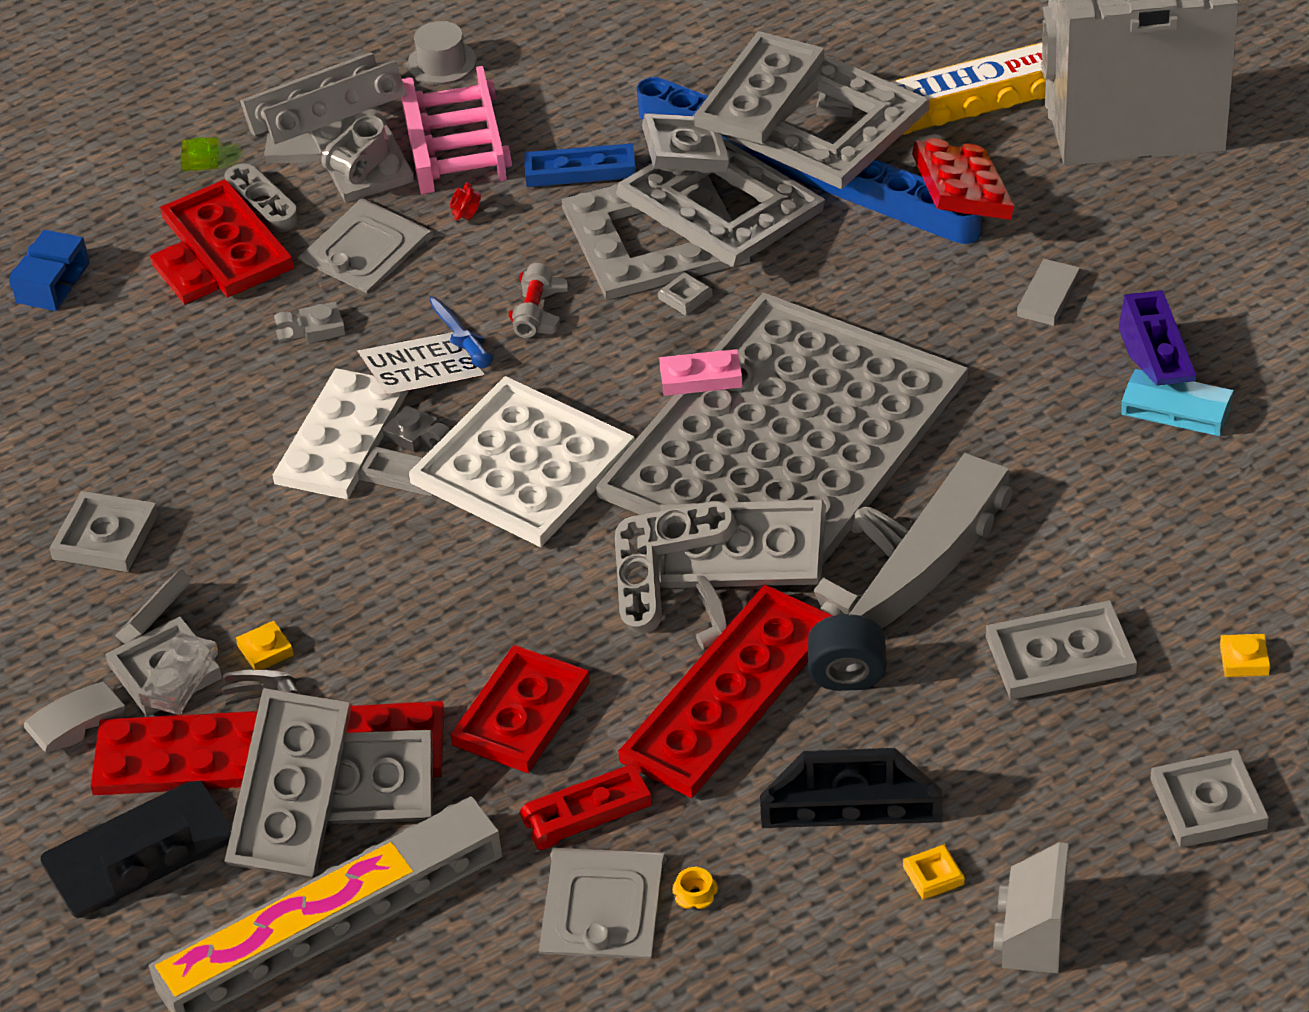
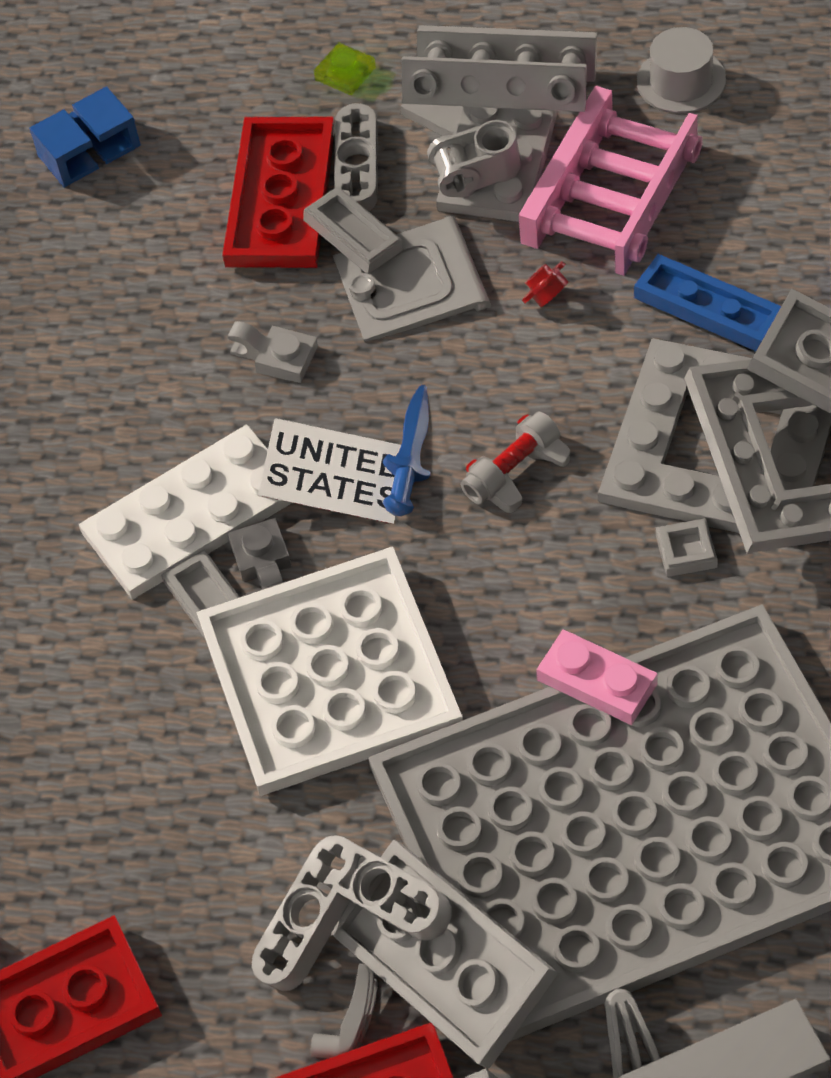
camera: 40 degrees right, 10 degrees up
(183, 272) = (207, 210): red plate -> none
(305, 231) = (353, 230): none -> light grey tile

